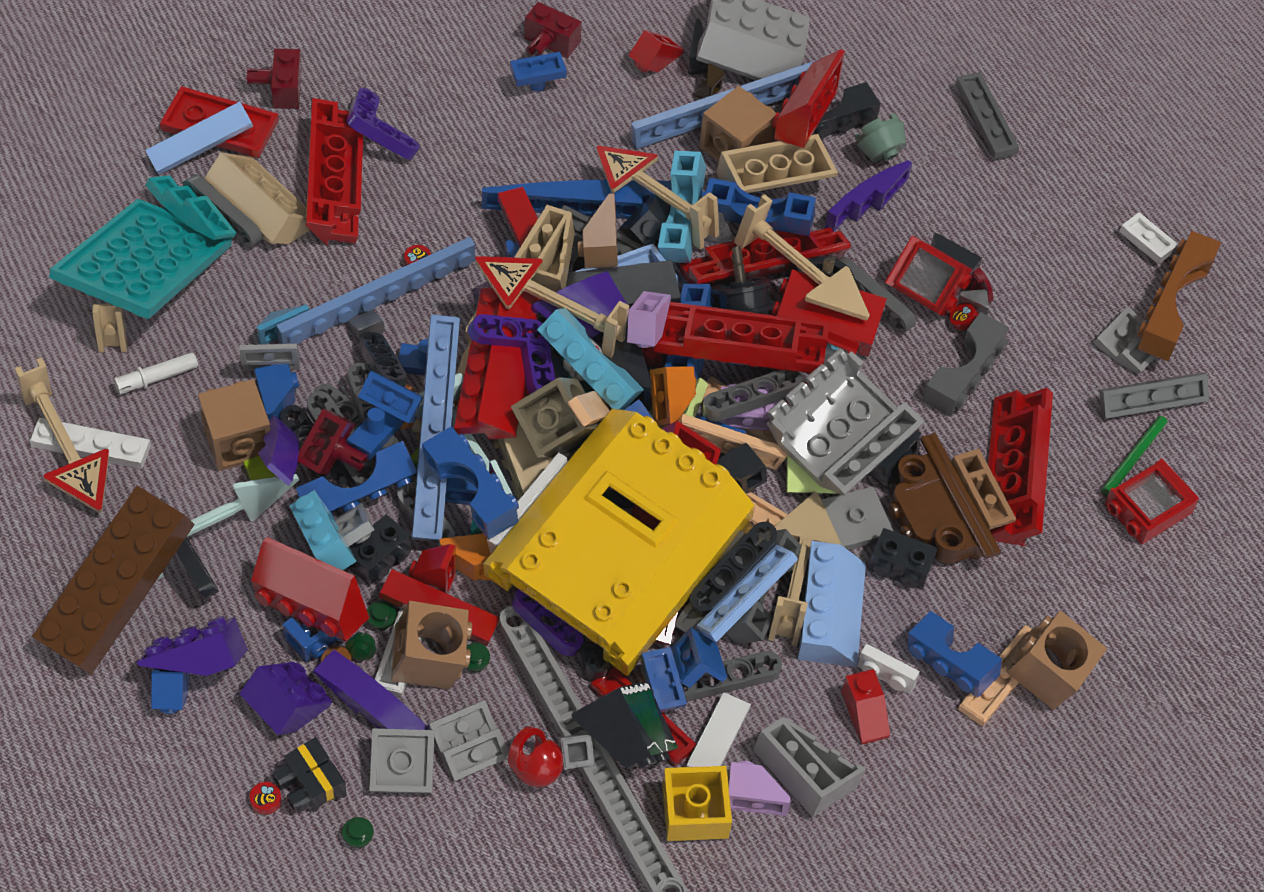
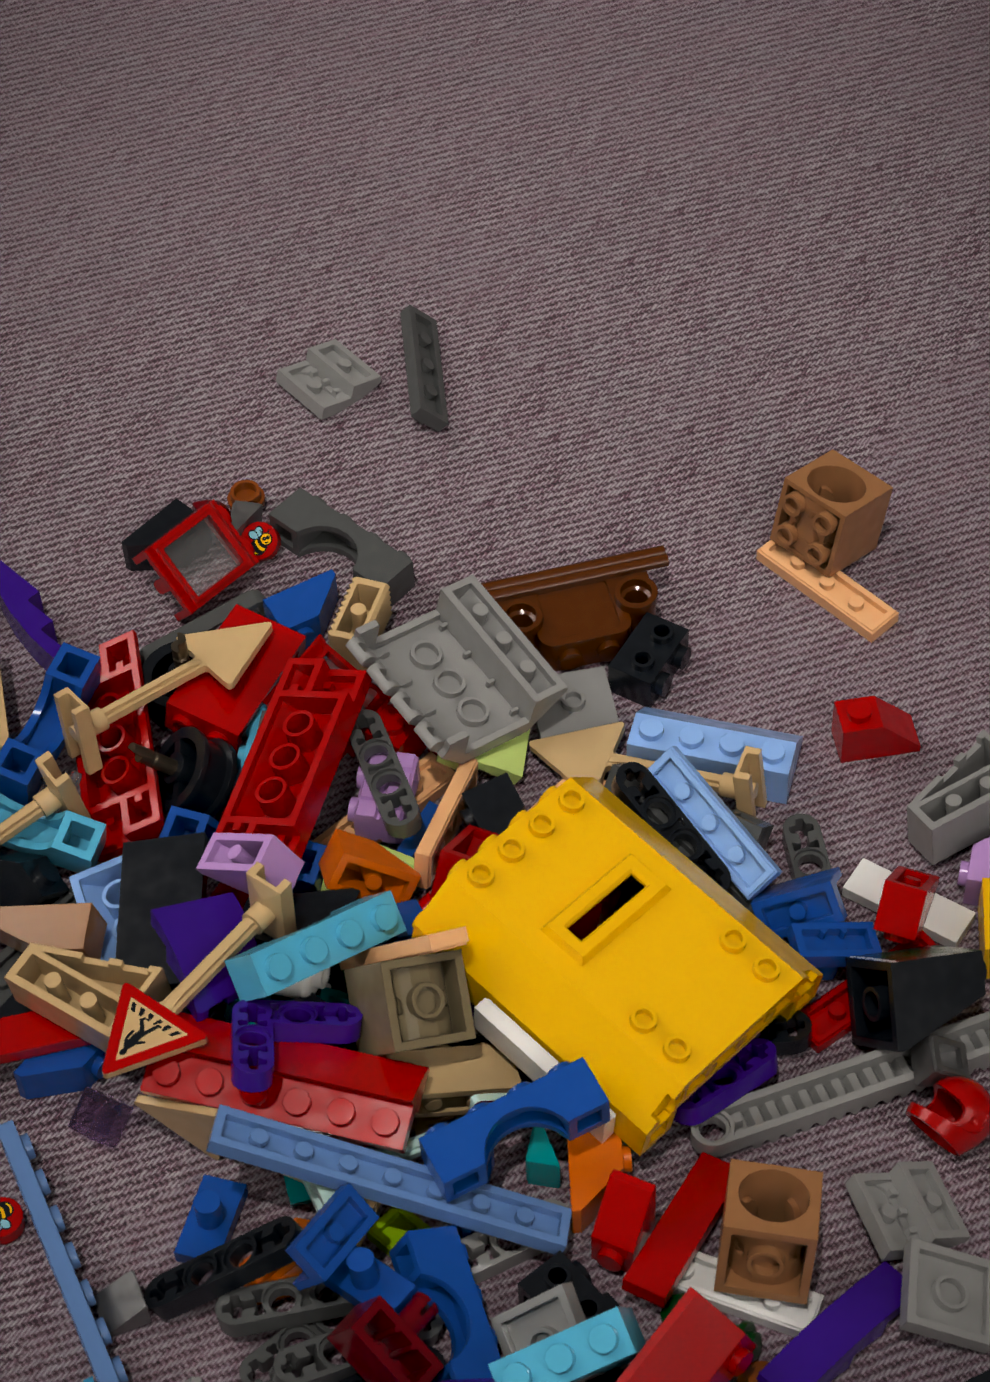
camera: 75 degrees left, 5 degrees down
(707, 724) = (905, 904): none -> red slope
(896, 673) = (812, 706): white plate -> none
(897, 377) = (364, 602): none -> tan brick
(904, 348) = (305, 606): none -> blue slope
(970, 669) = (785, 645): blue arch -> none
(983, 488) = (561, 548): medium nougat slope -> none
(1004, 304) = (246, 491): none -> dark orange plate
(1021, 460) = (510, 516): red slope -> none
(1134, 455) = (509, 406): green bar -> none
(1148, 238) = (168, 333): white plate -> none
(1151, 501) = (586, 397): red window -> none
(1164, 324) = (334, 330): dark orange arch -> none

